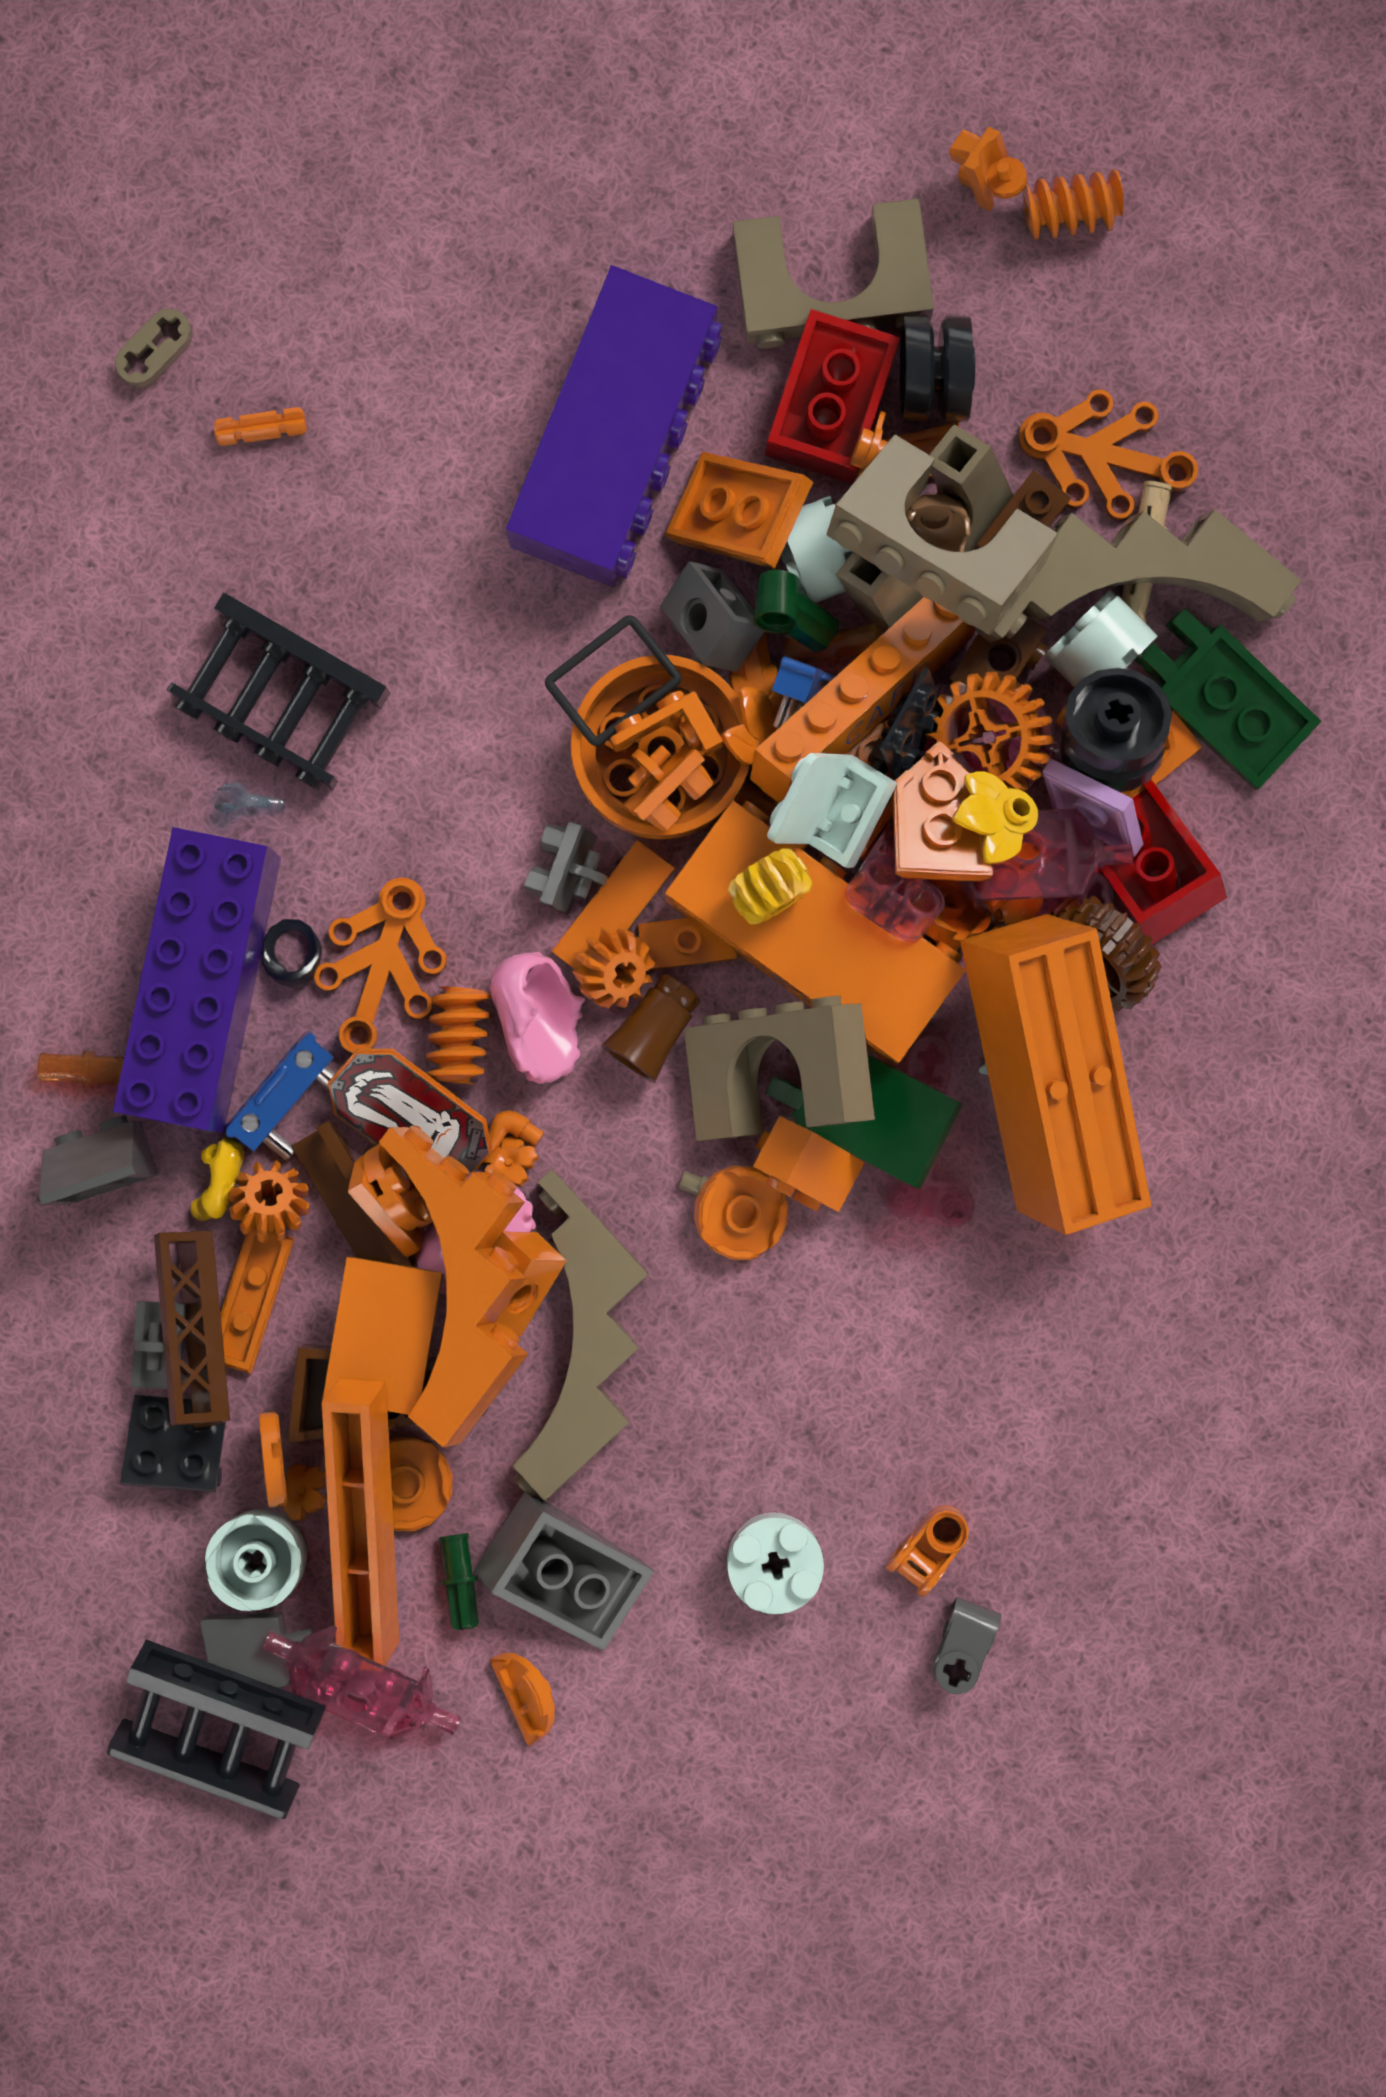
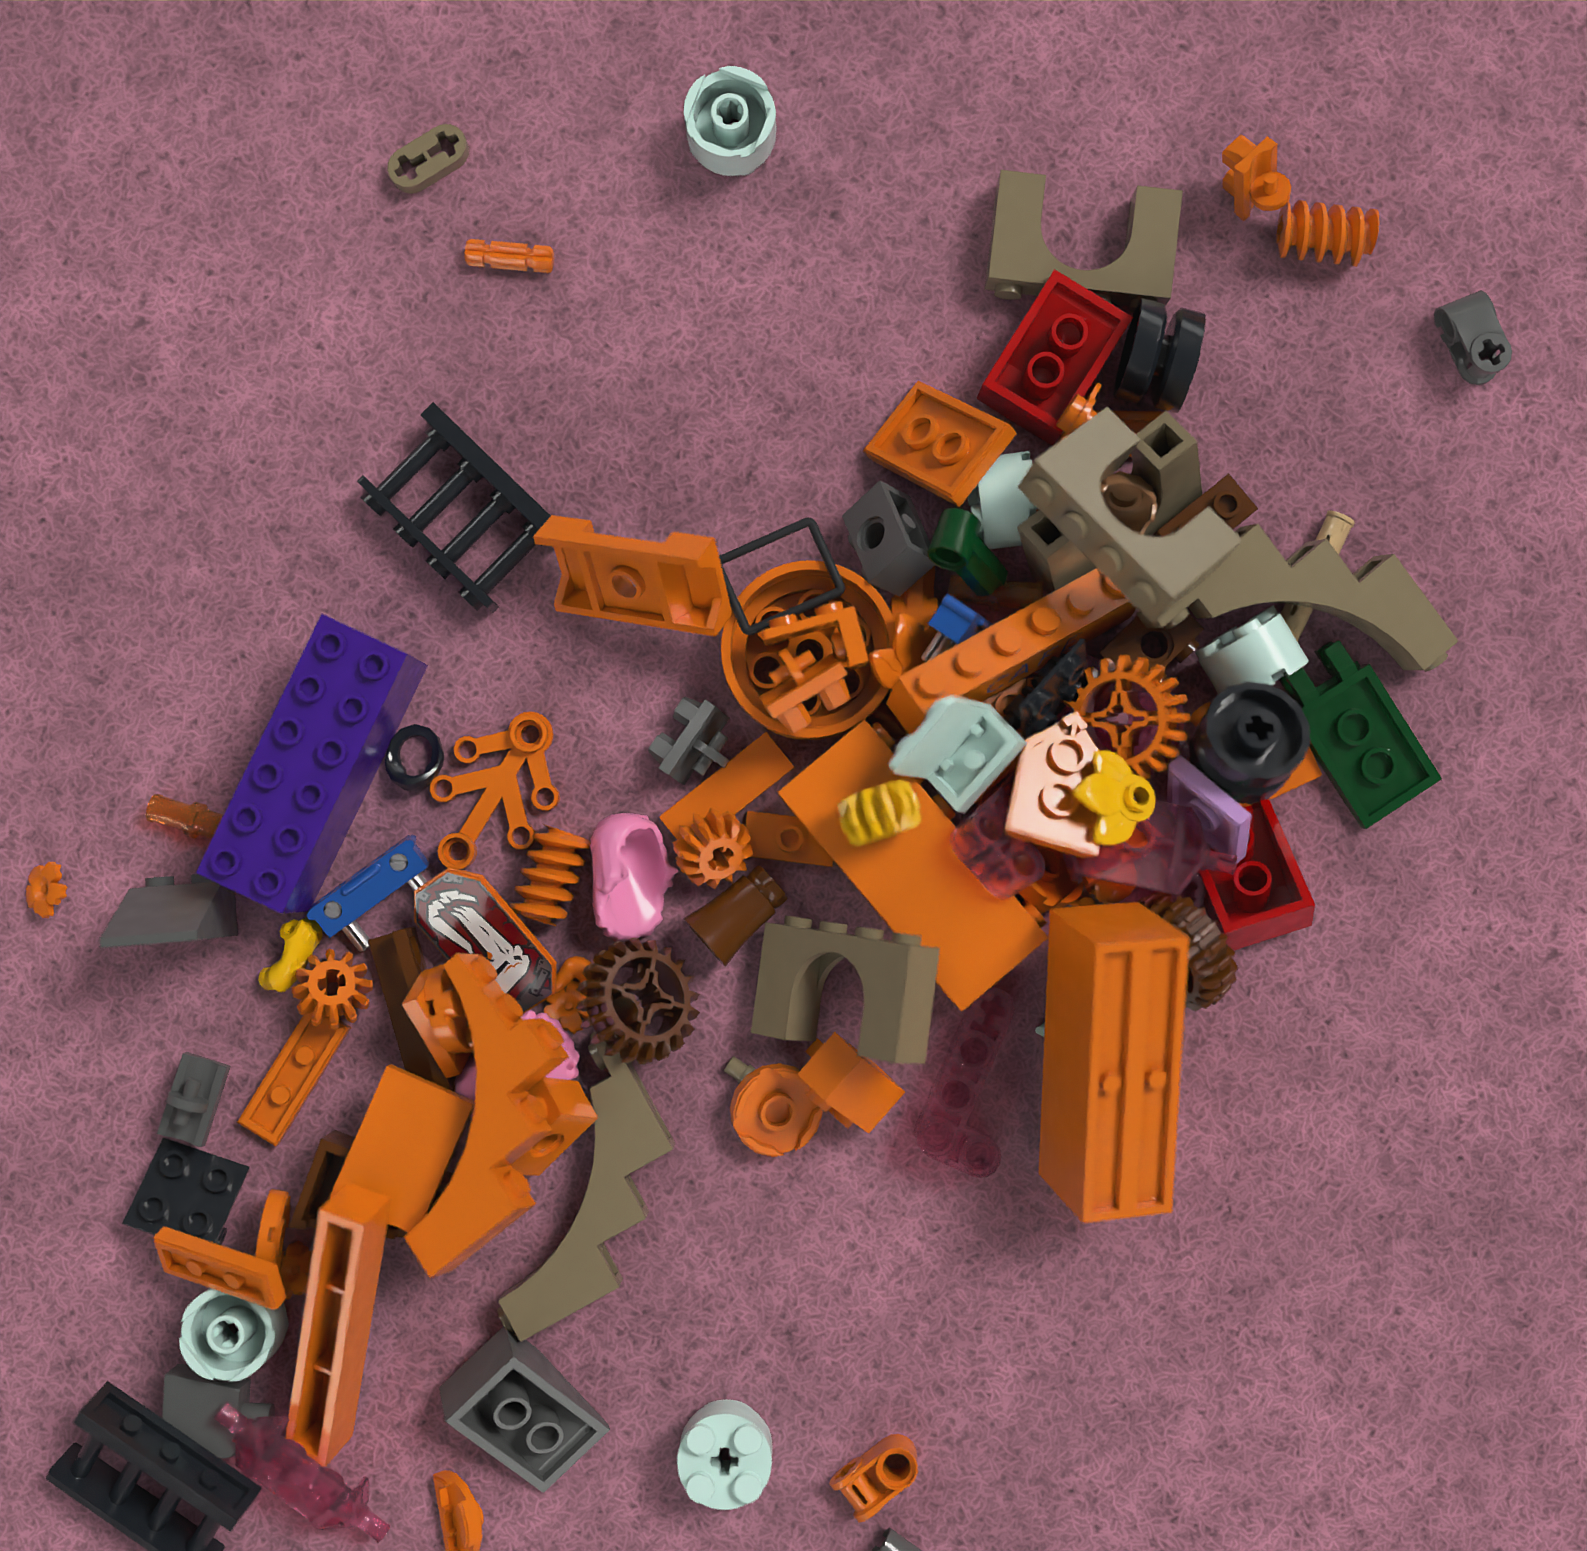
camera: 20 degrees right, 0 degrees up
(201, 1327) = (236, 1095): reddish brown fence -> none
(231, 1497) = (220, 1268): none -> orange tile
(245, 799) = (409, 603): clear light blue hand -> none
(423, 1477) = (404, 1280): orange tile -> none
(428, 224) = (711, 107): none -> light aqua brick
(459, 1581) = (422, 1393): dark green axle -> none
(513, 714) = (675, 581): none -> orange piece
(565, 1148) = (660, 990): none -> reddish brown gear
(615, 427) = (841, 335): dark purple brick -> none
(907, 1125) = (957, 1068): dark green tile -> none
(1100, 452) = (1293, 472): orange plant -> none
(1242, 267) = (1471, 333): none -> dark grey piece

